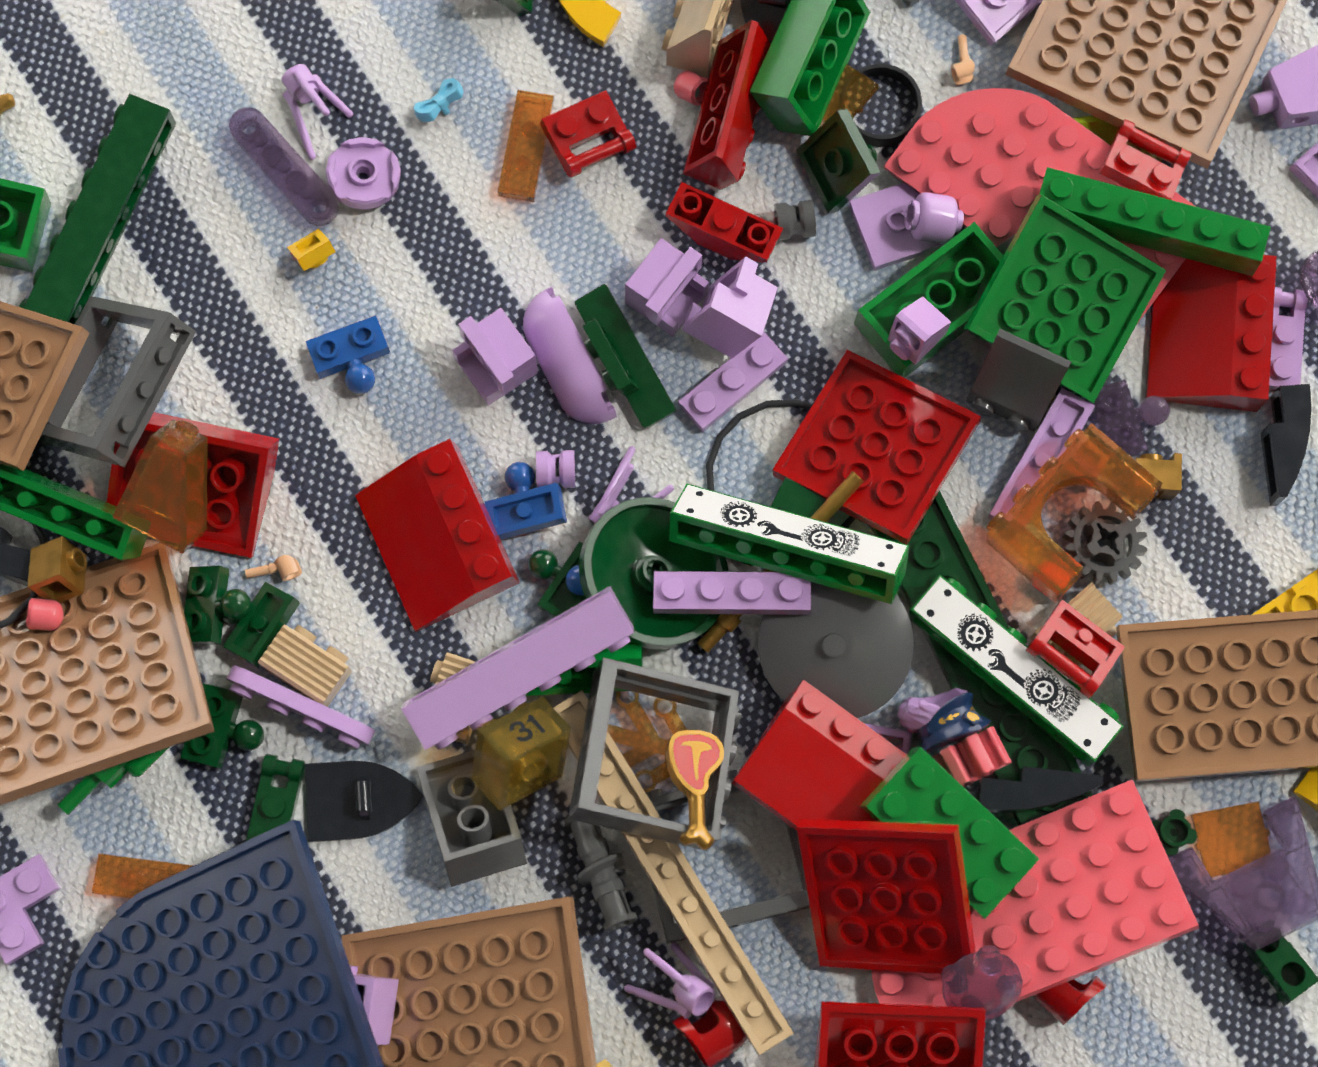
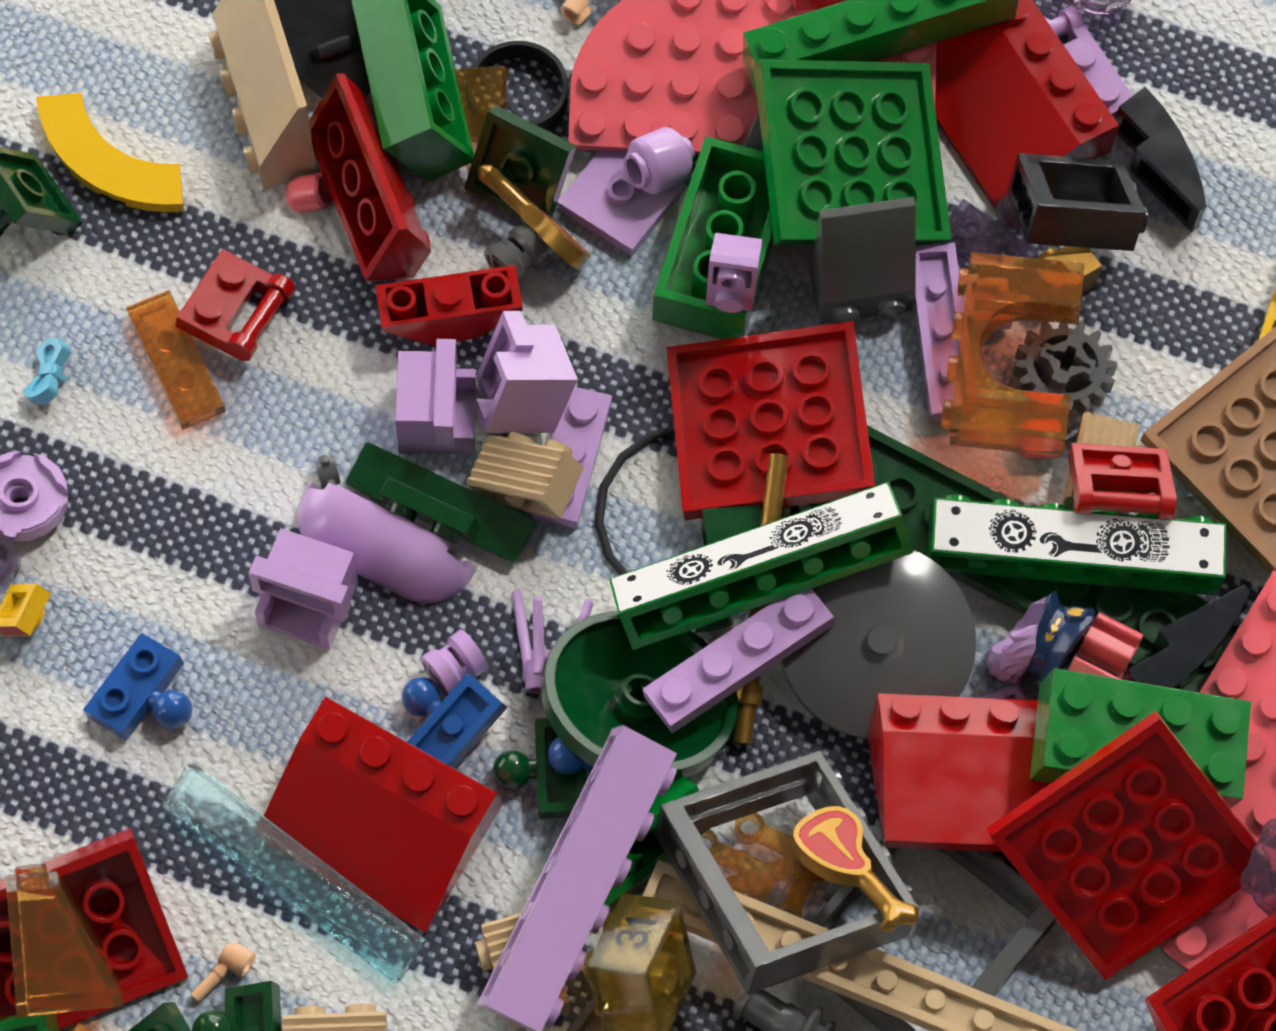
camera: 35 degrees left, 10 degrees down
(359, 537) = (294, 873): none -> clear light blue tile
(567, 287) = (327, 471): none -> dark grey piece
(688, 376) = (526, 474): none -> tan brick
(826, 221) = (537, 219): none -> pearl gold piece
(1186, 452) = (1076, 202): none -> black window

